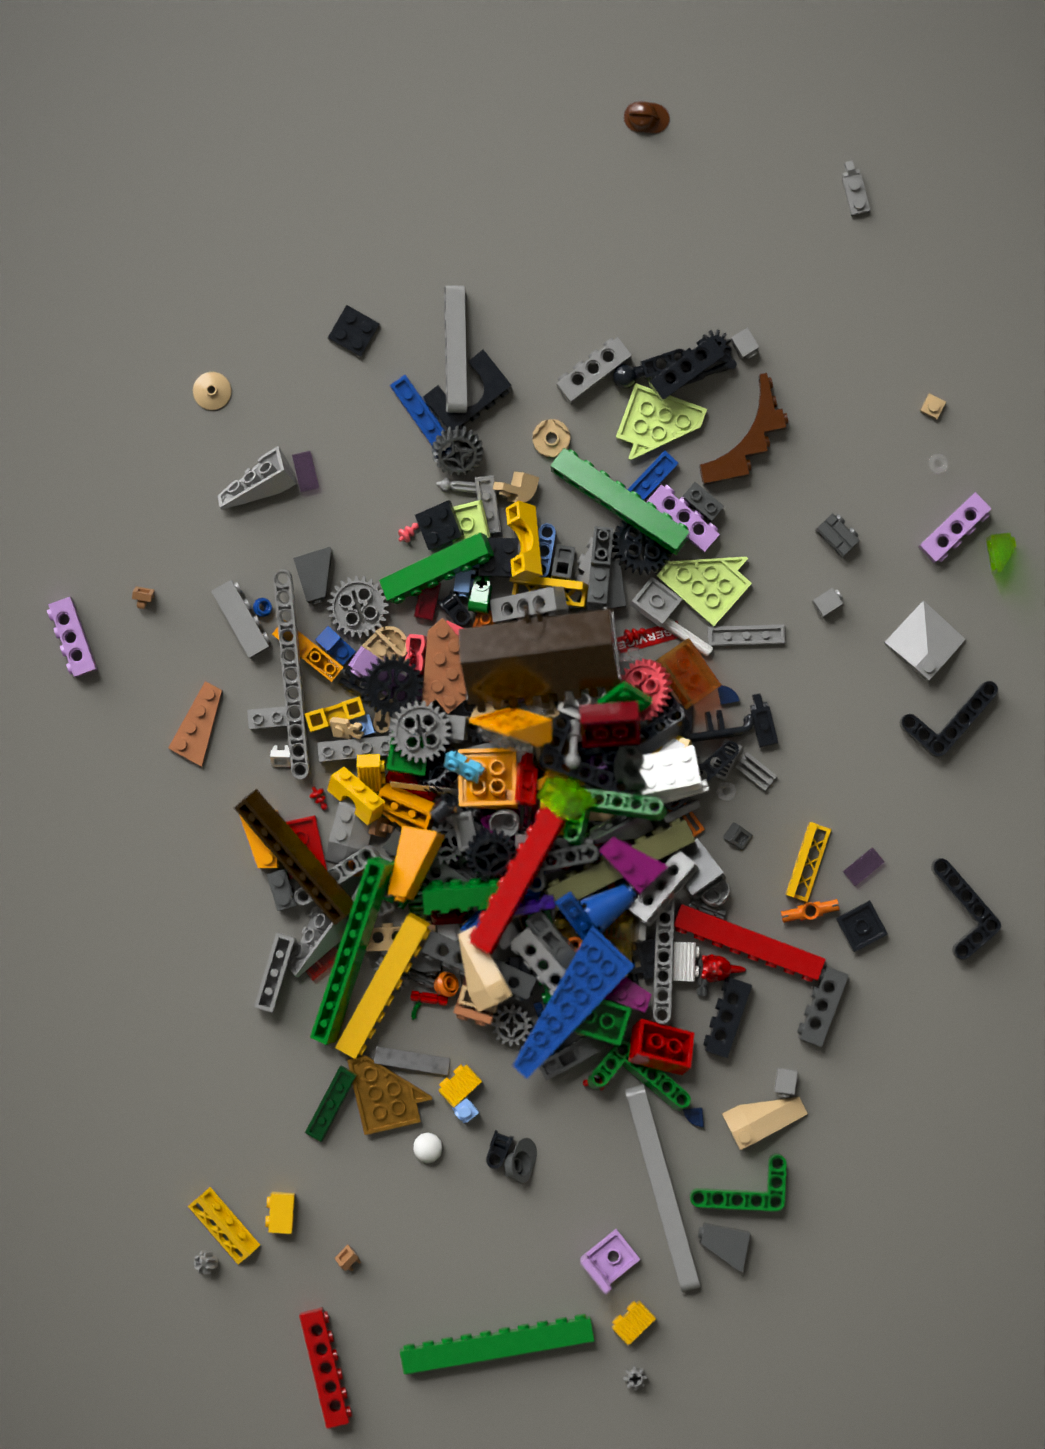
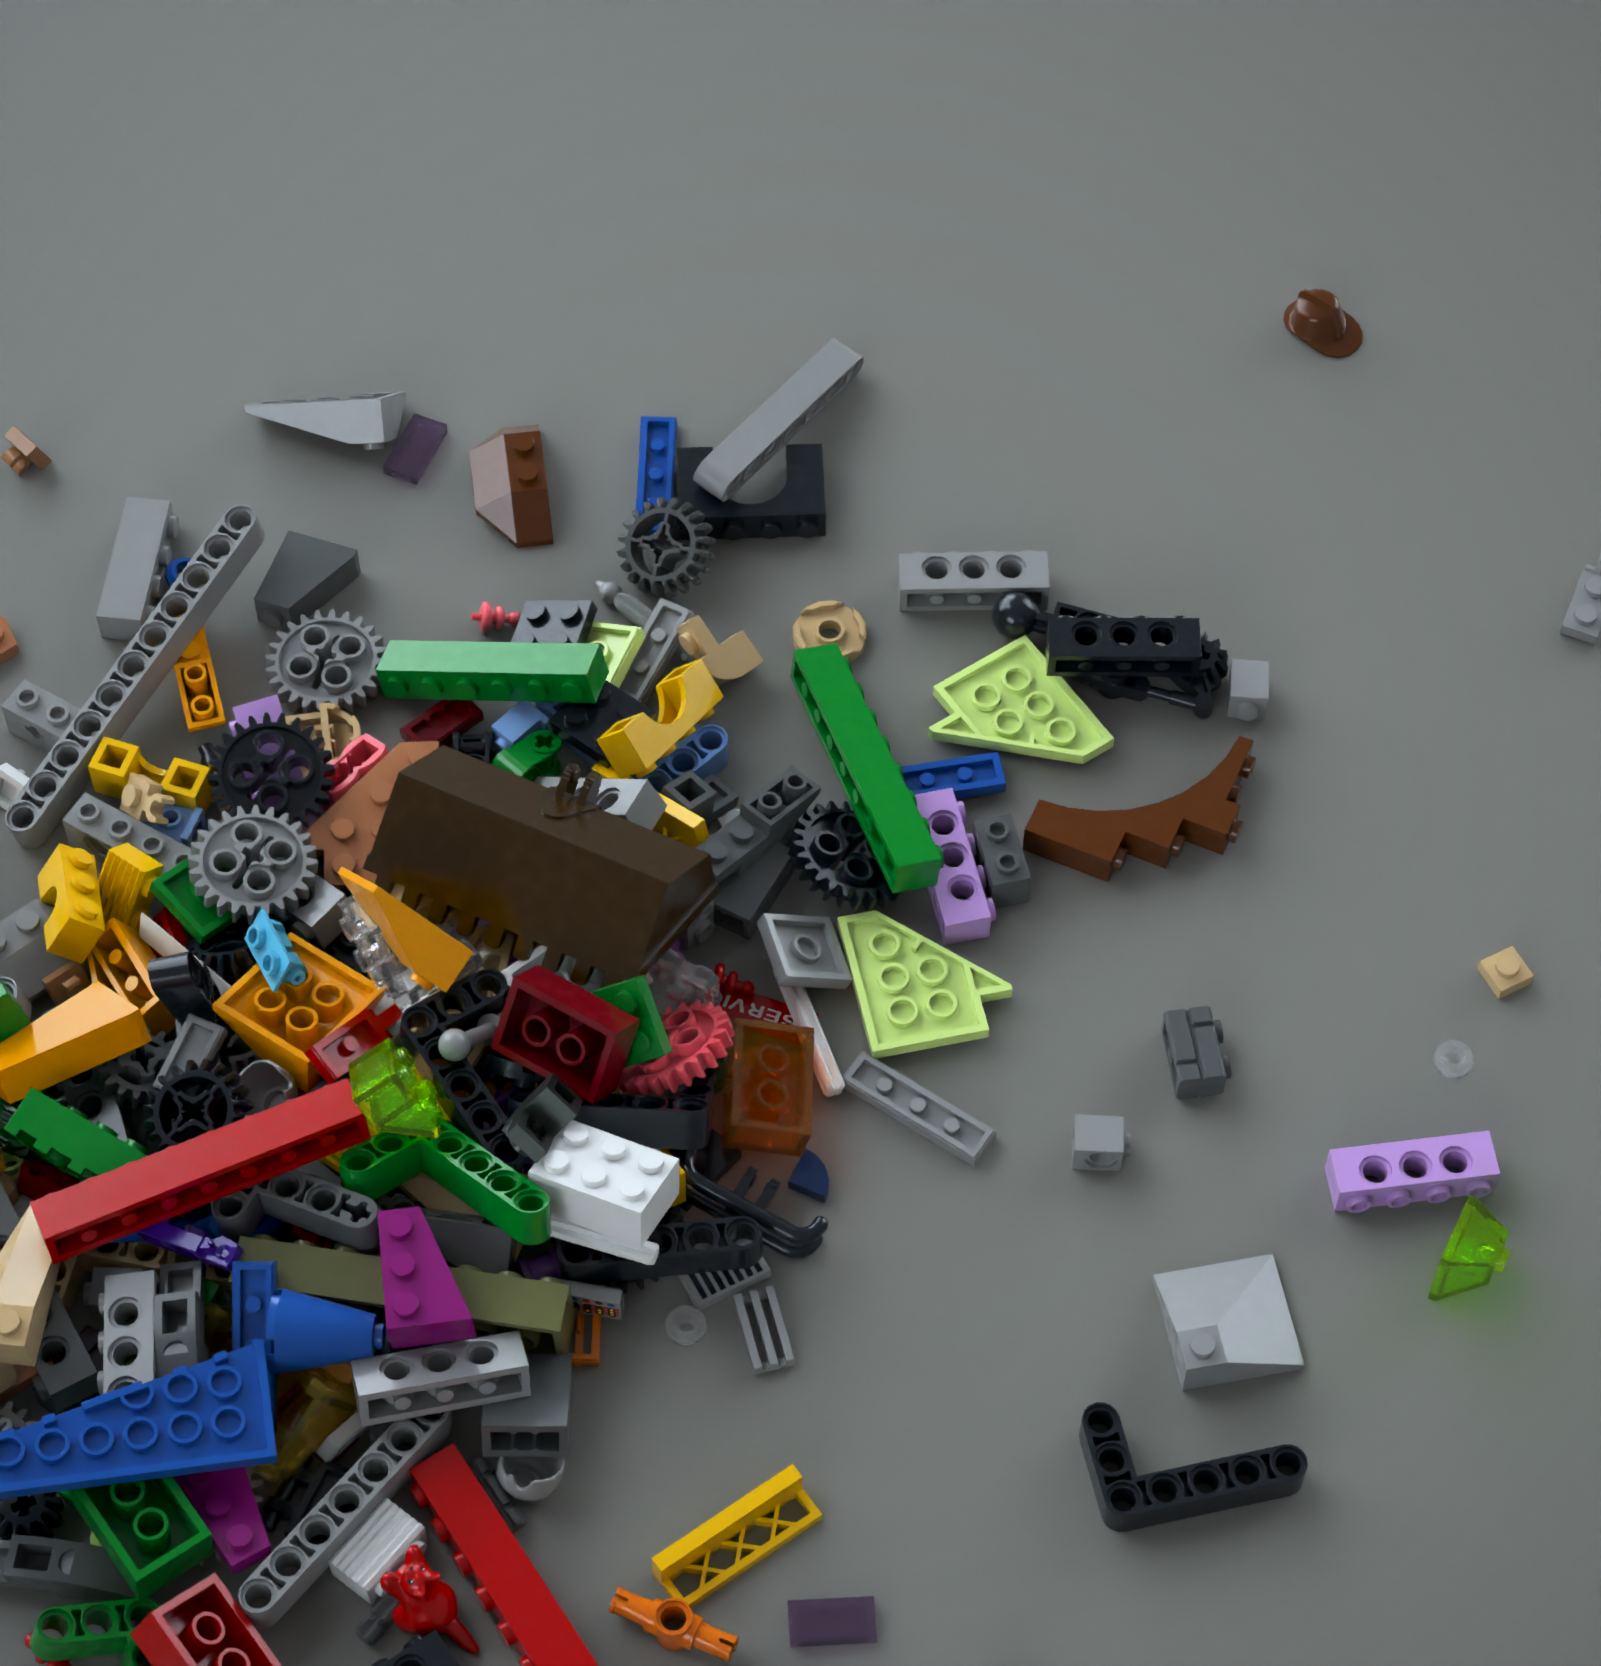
camera: 35 degrees right, 30 degrees down
(219, 397) = (375, 275): tan dish -> none
(319, 799) = (17, 890): red hair -> none
(335, 645) = (240, 687): blue slope -> none
(353, 330) = (649, 323): black plate -> none
(361, 459) = (513, 485): none -> reddish brown wedge
(737, 836) = (648, 1415): dark grey slope -> none
(763, 722) = (838, 1257): black hinge -> none

